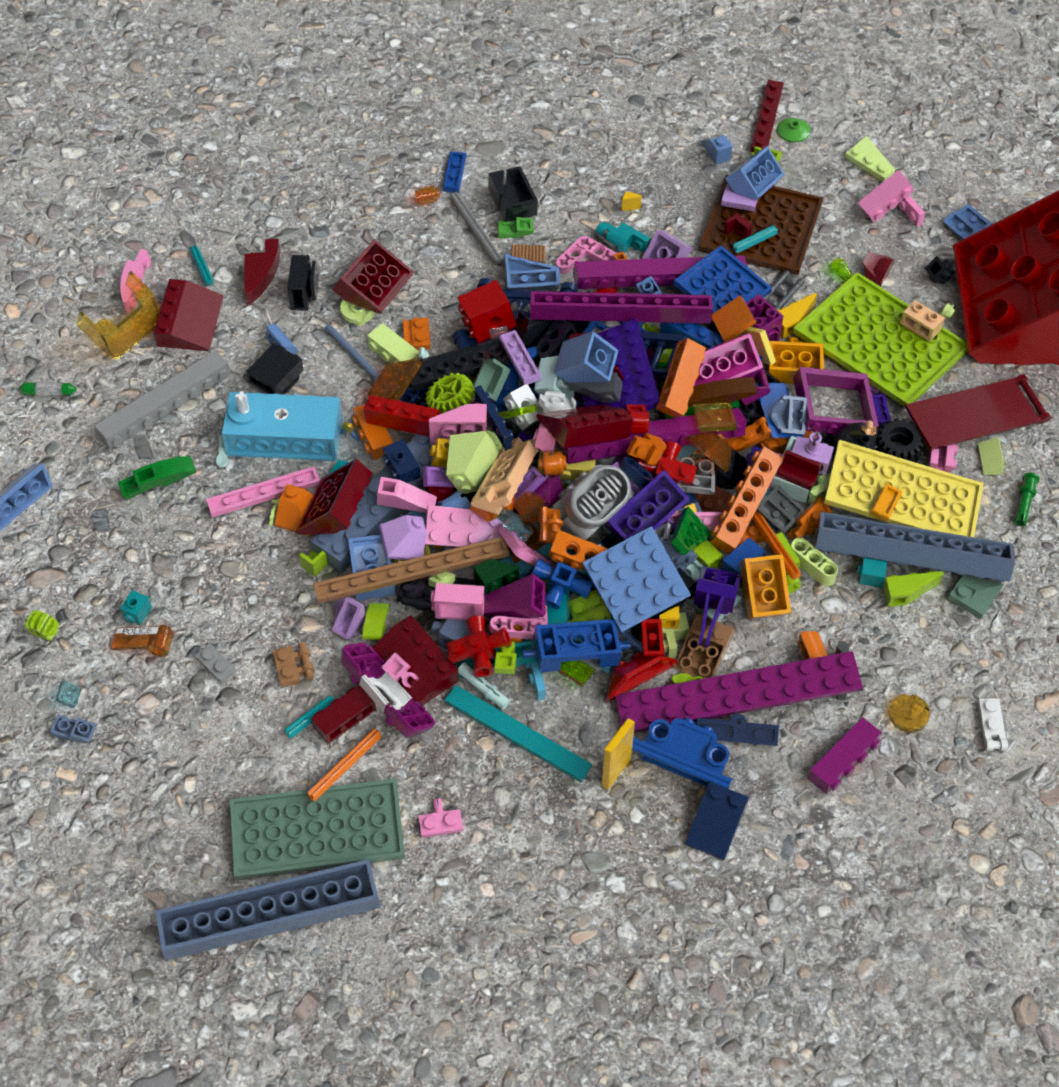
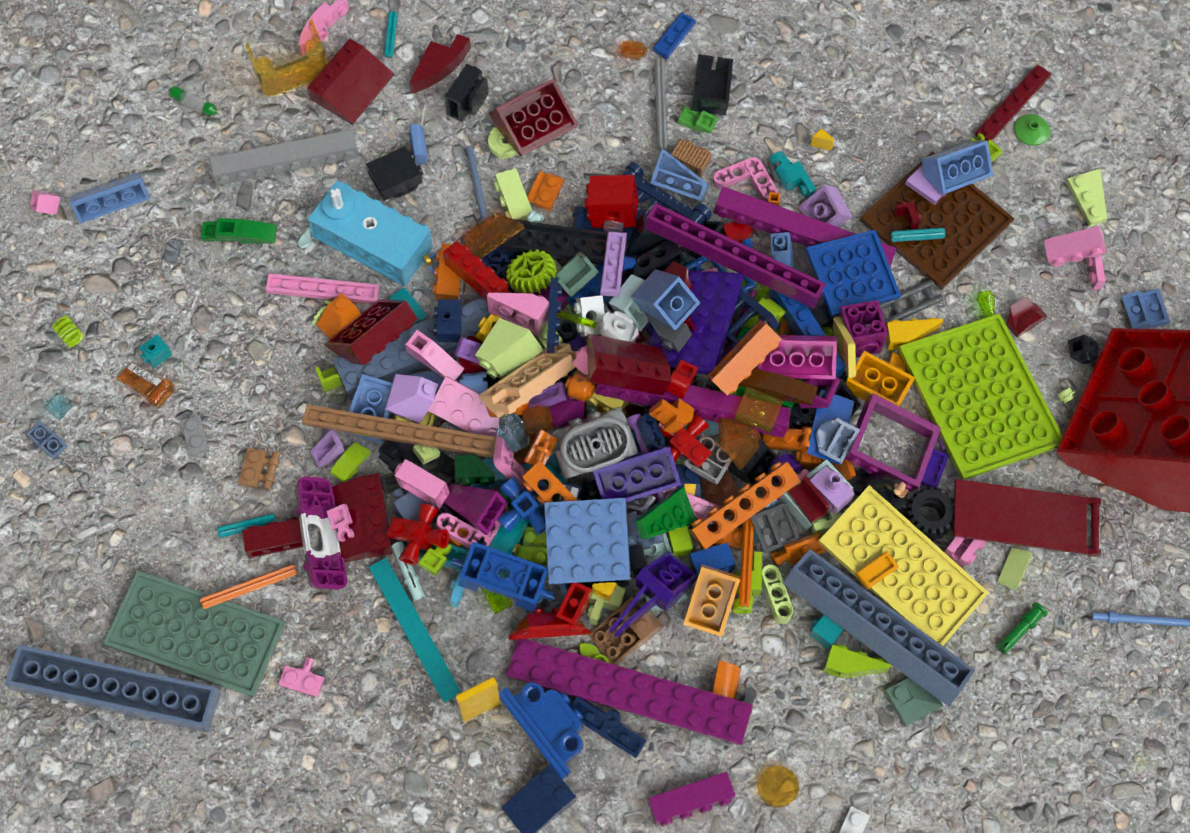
camera: 25 degrees right, 10 degrees up
(718, 148) = (942, 119): medium blue slope -> none
(733, 318) = (836, 315): orange tile -> none
(922, 320) = (1030, 396): light nougat brick -> none

